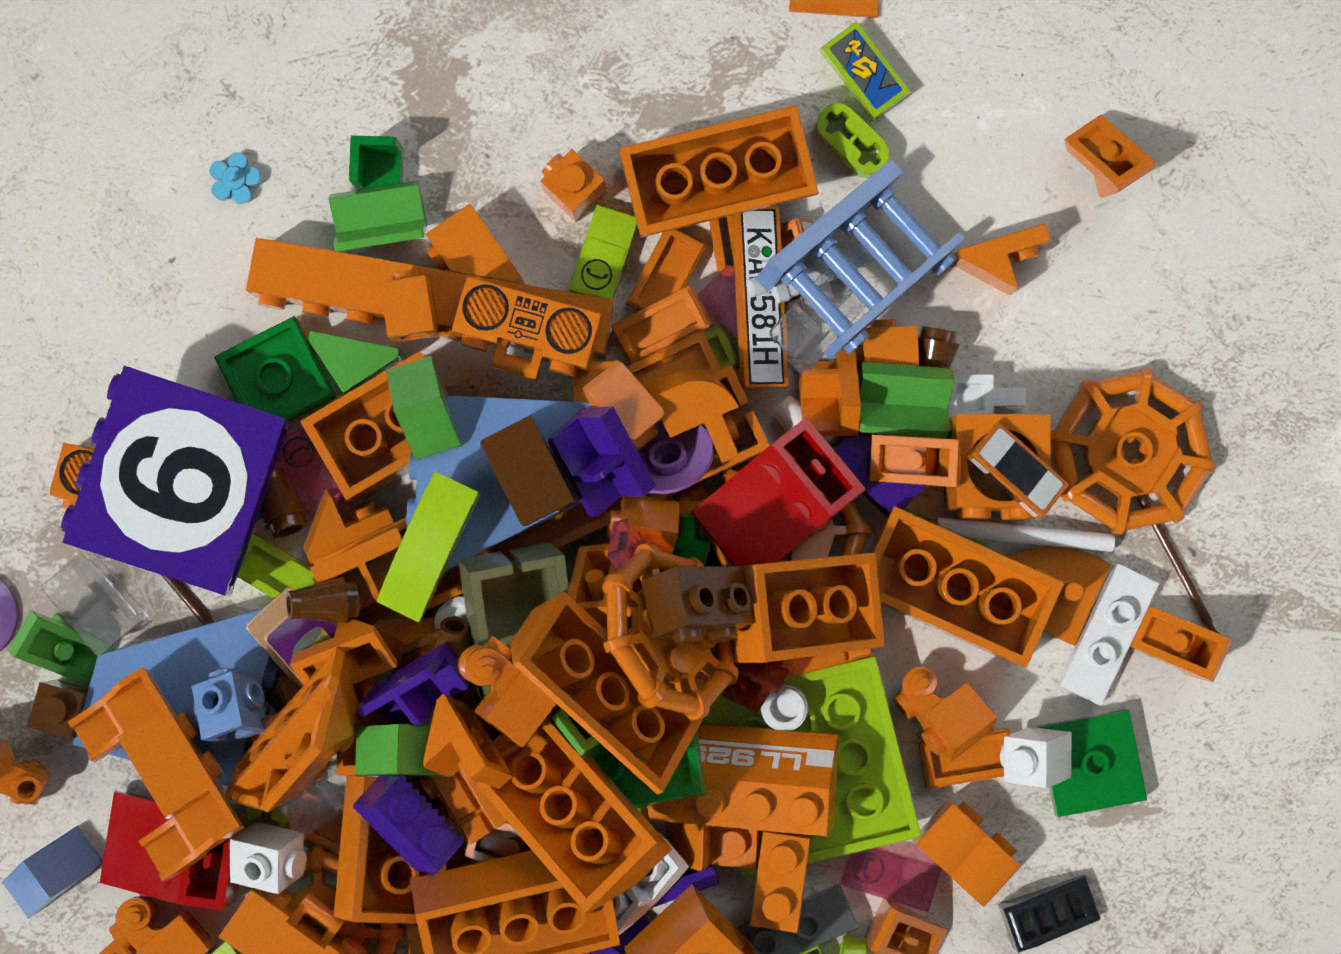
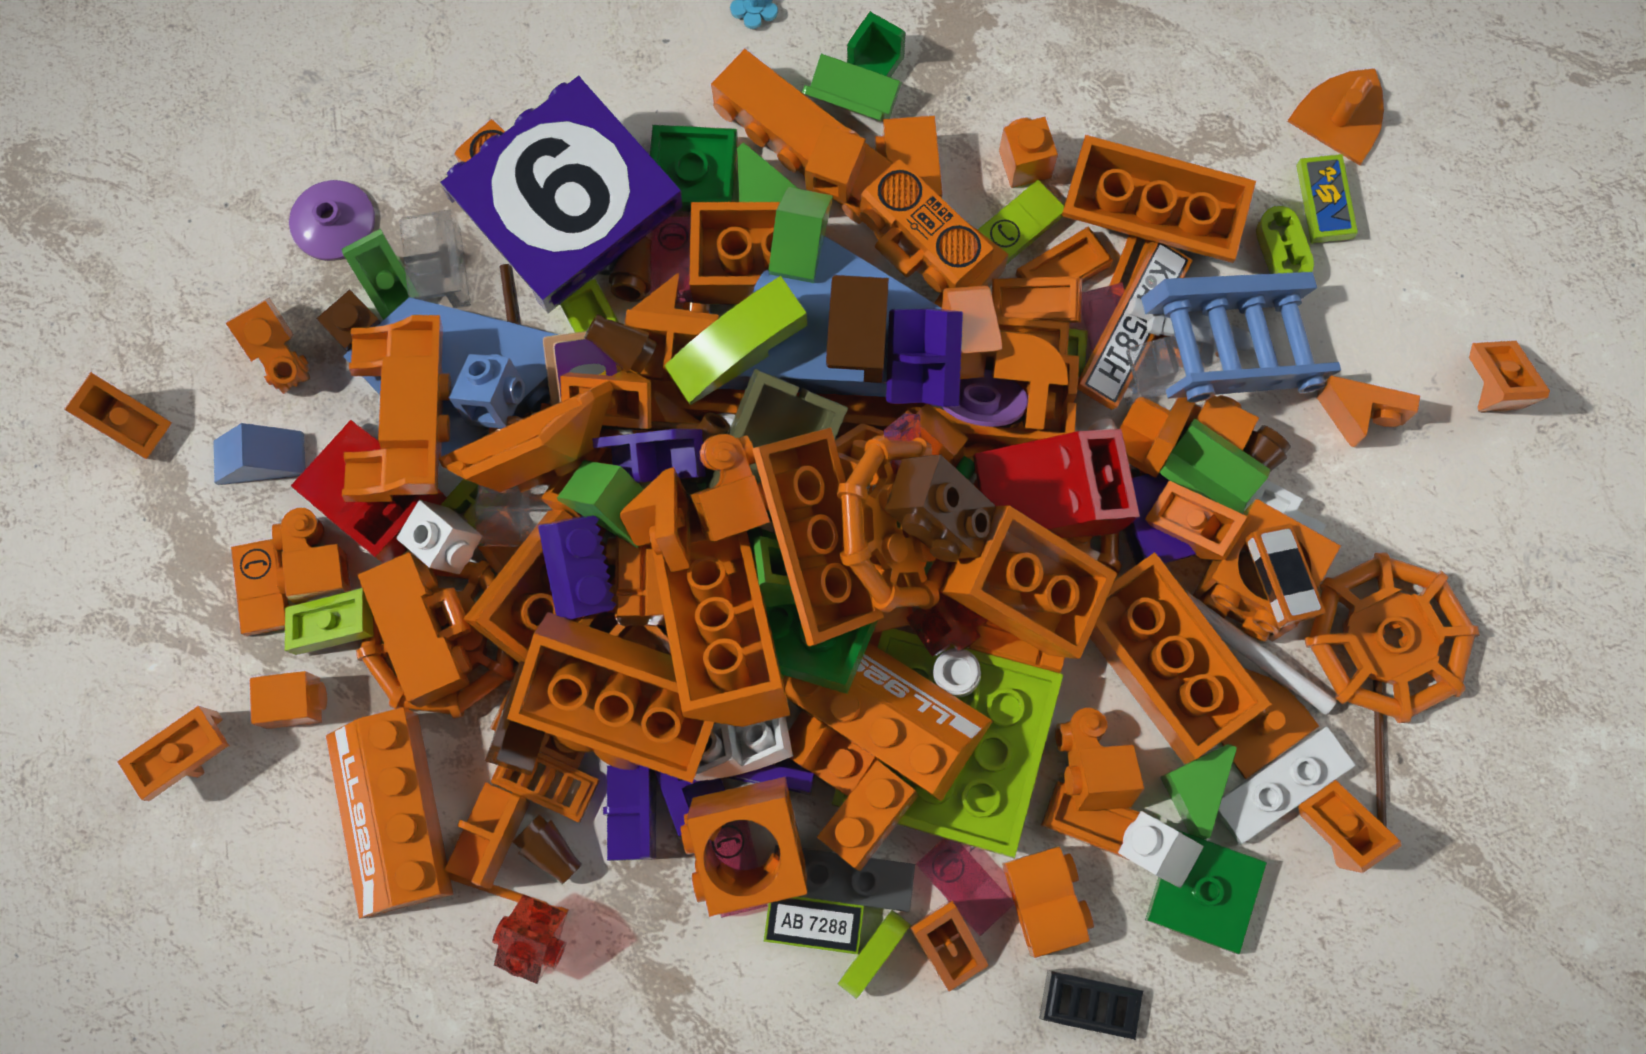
camera: 30 degrees right, 10 degrees down
(1042, 682) = (1199, 789): none -> bright green slope

